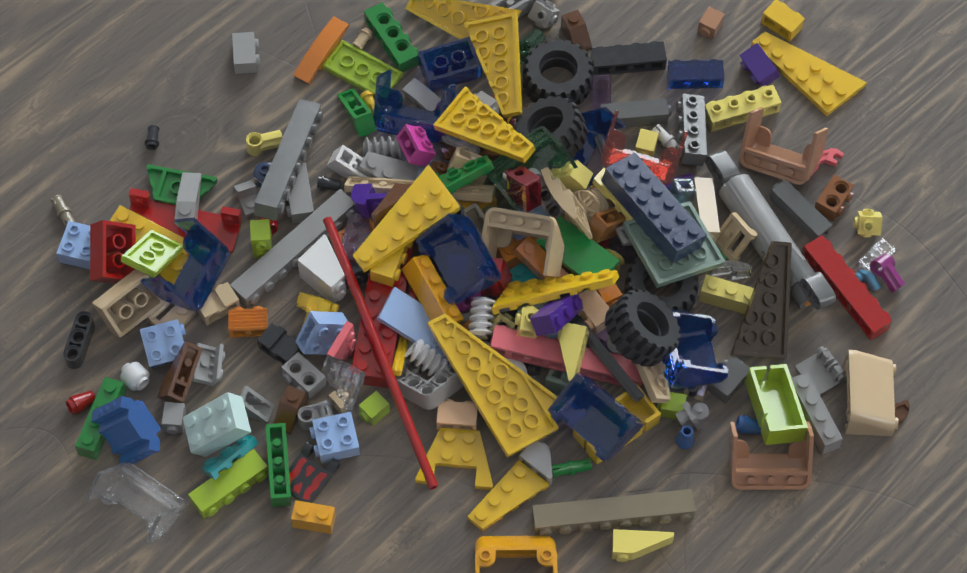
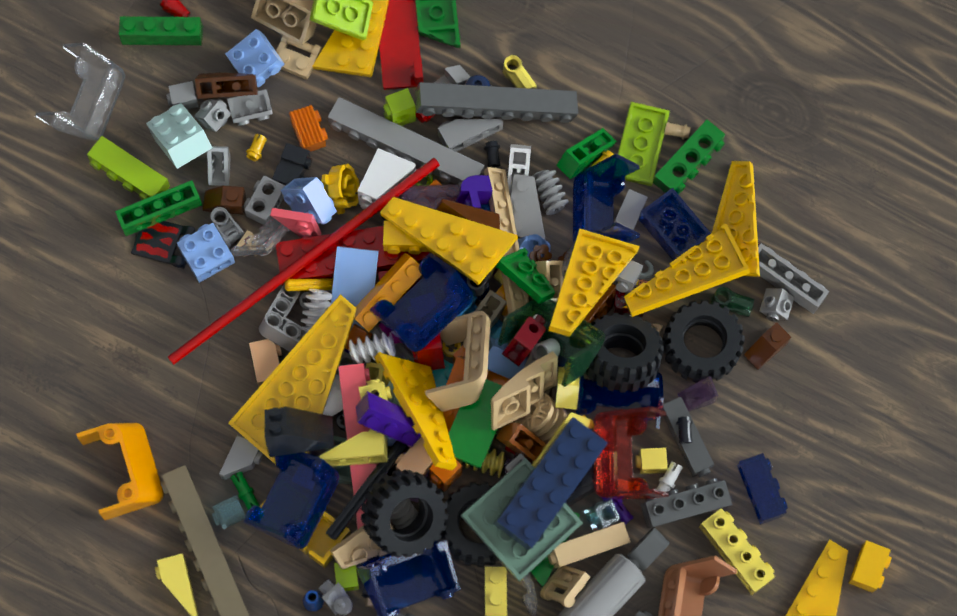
camera: 70 degrees right, 10 degrees up
(128, 429) = (148, 57): blue slope -> none
(134, 376) = (215, 45): white head -> none
(188, 196) = (420, 25): light grey slope -> none
(200, 271) = (335, 63): clear blue windscreen -> none
(202, 393) = (213, 114): none -> light grey brick
(219, 303) = (317, 92): tan brick -> none
(224, 460) = (147, 155): teal wing -> none
(245, 52) = (616, 21): light grey brick -> none
(252, 373) = (256, 147): none -> yellow pin
(313, 517) = (115, 259): light orange brick -> none
(321, 49) = (648, 94): orange slope -> none
(373, 408) = (249, 278): lime brick -> none
(416, 145) = (556, 221): dark pink brick -> none
(460, 450) = (233, 377): yellow wing -> none
(510, 492) = (195, 438): yellow wing -> none
(541, 393) = (297, 431): none -> black slope
(585, 484) = (228, 512): none -> clear light blue brick
(628, 58) = (755, 410): black brick -> none
(631, 107) = (684, 427): none -> black pin
(710, 22) = (835, 487): nougat brick -> none
(759, 65) = (797, 555): dark purple brick -> none

